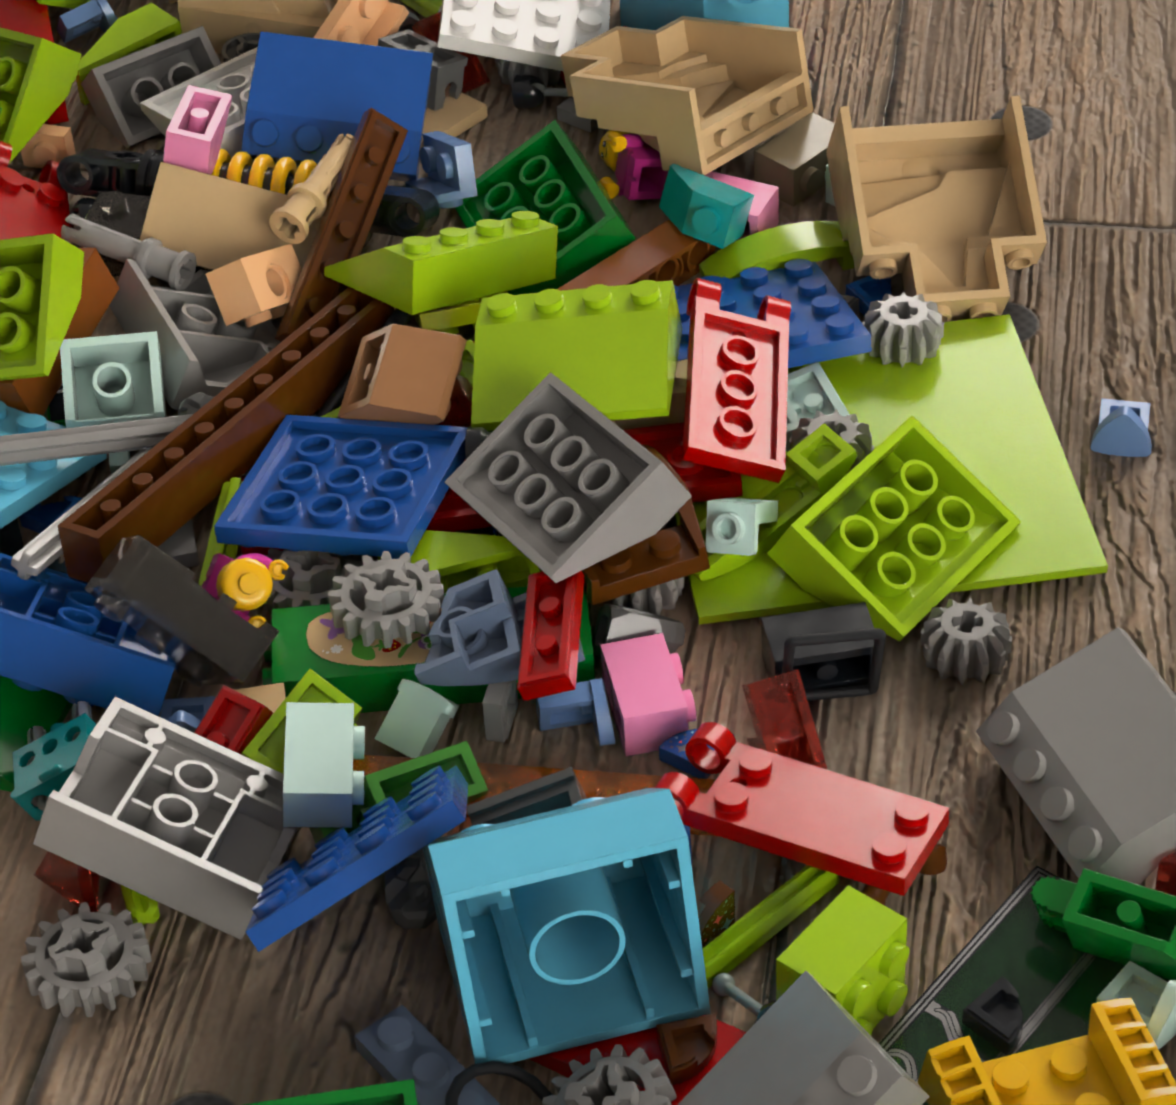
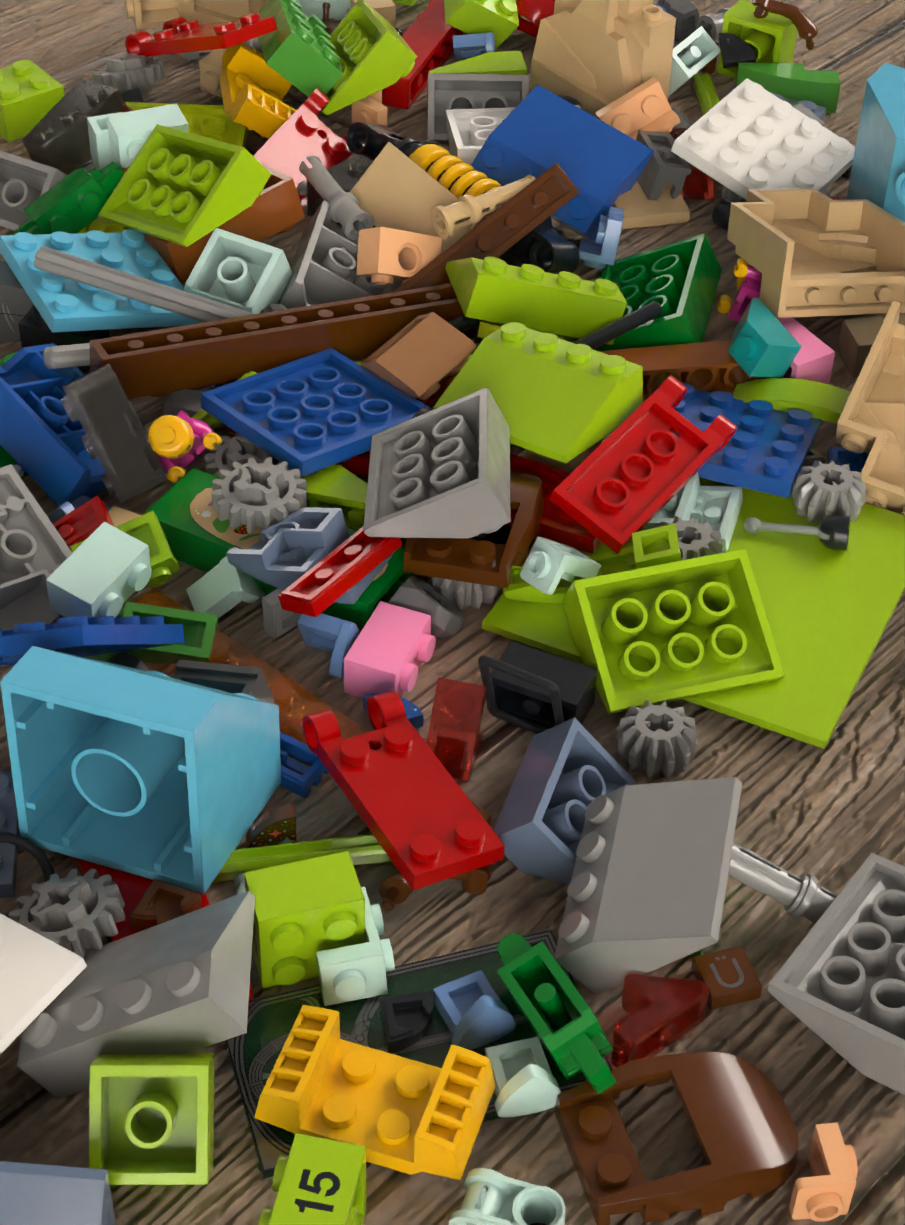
camera: 30 degrees right, 0 degrees up
(197, 129) = (433, 133): bright pink slope -> none
(563, 252) = (621, 325): none -> black bar
(923, 998) = (357, 969): none -> light aqua bracket
(935, 745) = (550, 796): none -> sand blue slope
(938, 364) = (832, 531): none -> hinge
(1050, 973) = (473, 1011): none -> medium blue tile

